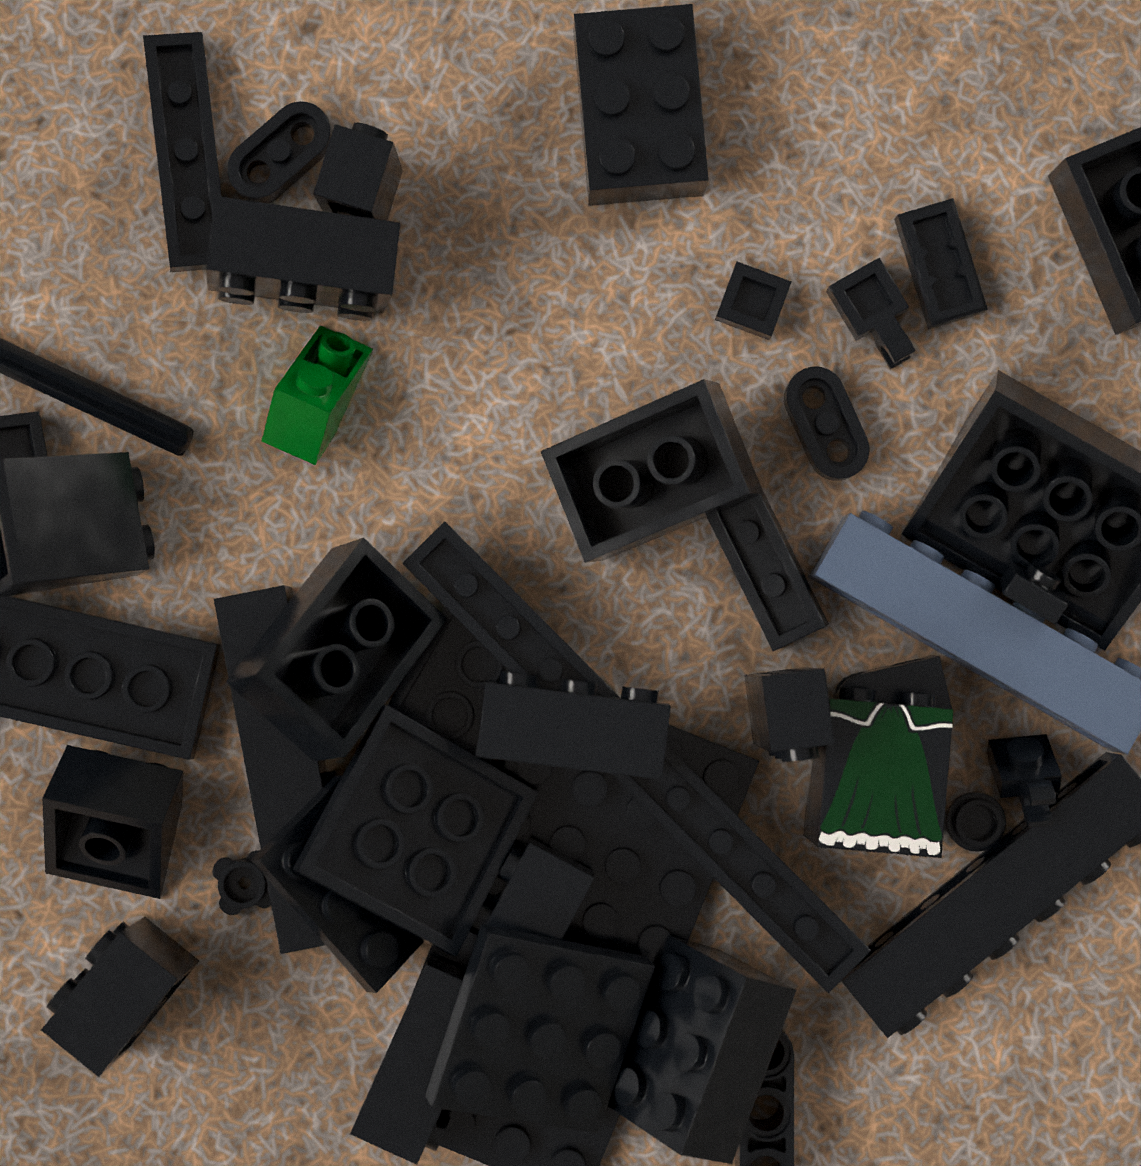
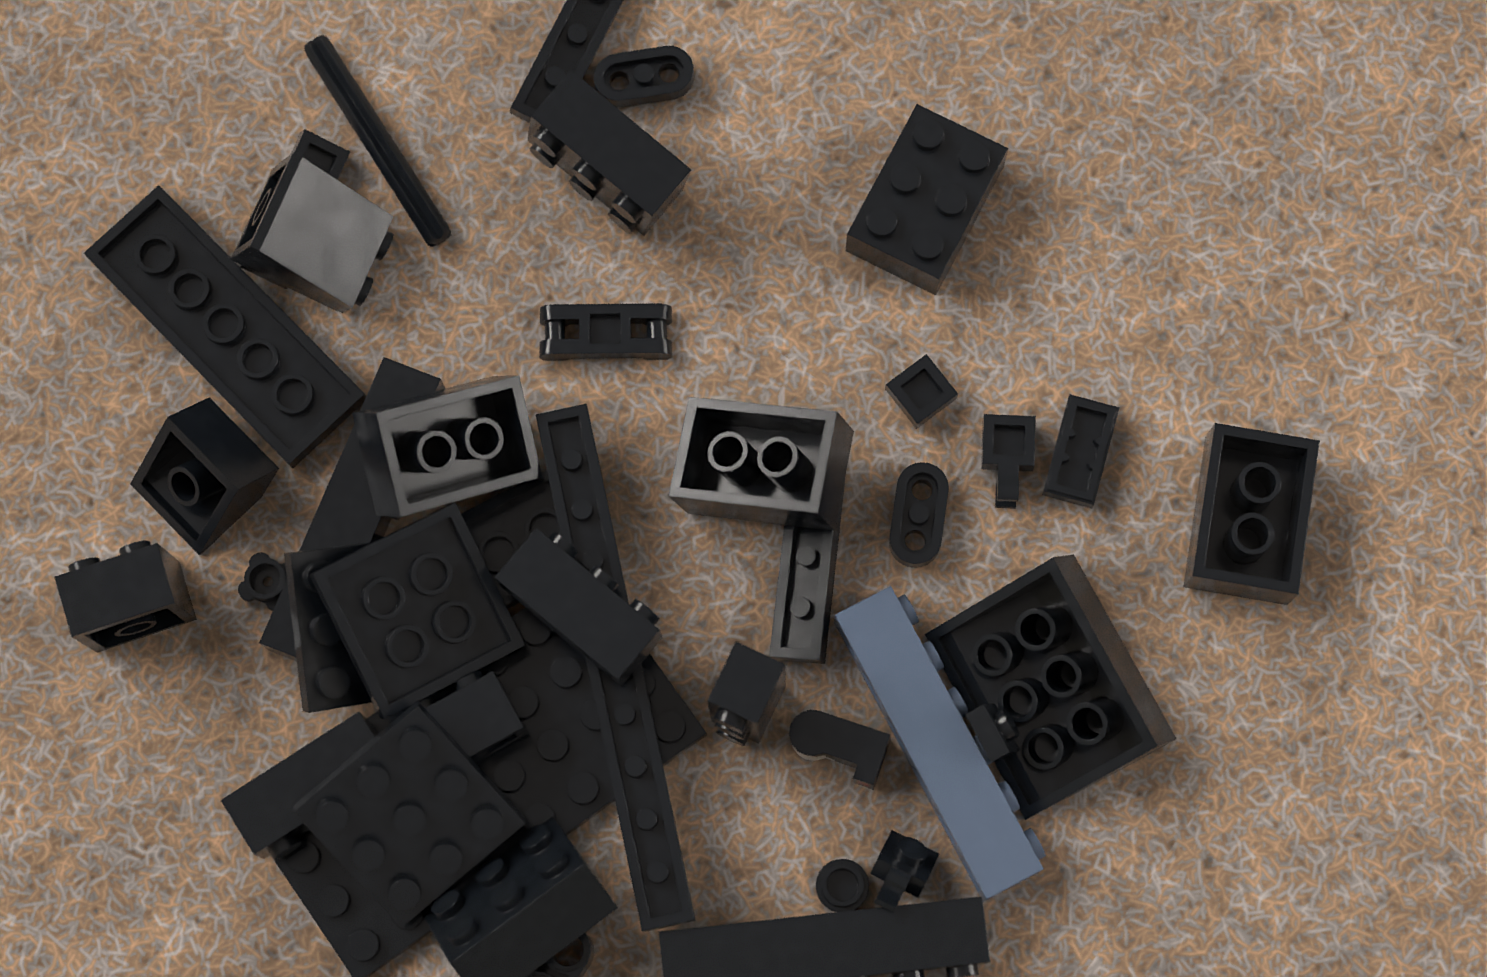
camera: 45 degrees right, 10 degrees down
(315, 394) = (554, 260): green slope -> none
(359, 173) = (688, 121): black brick -> none
(409, 433) = (605, 331): none -> black plate
(882, 777) = (786, 787): slope -> none

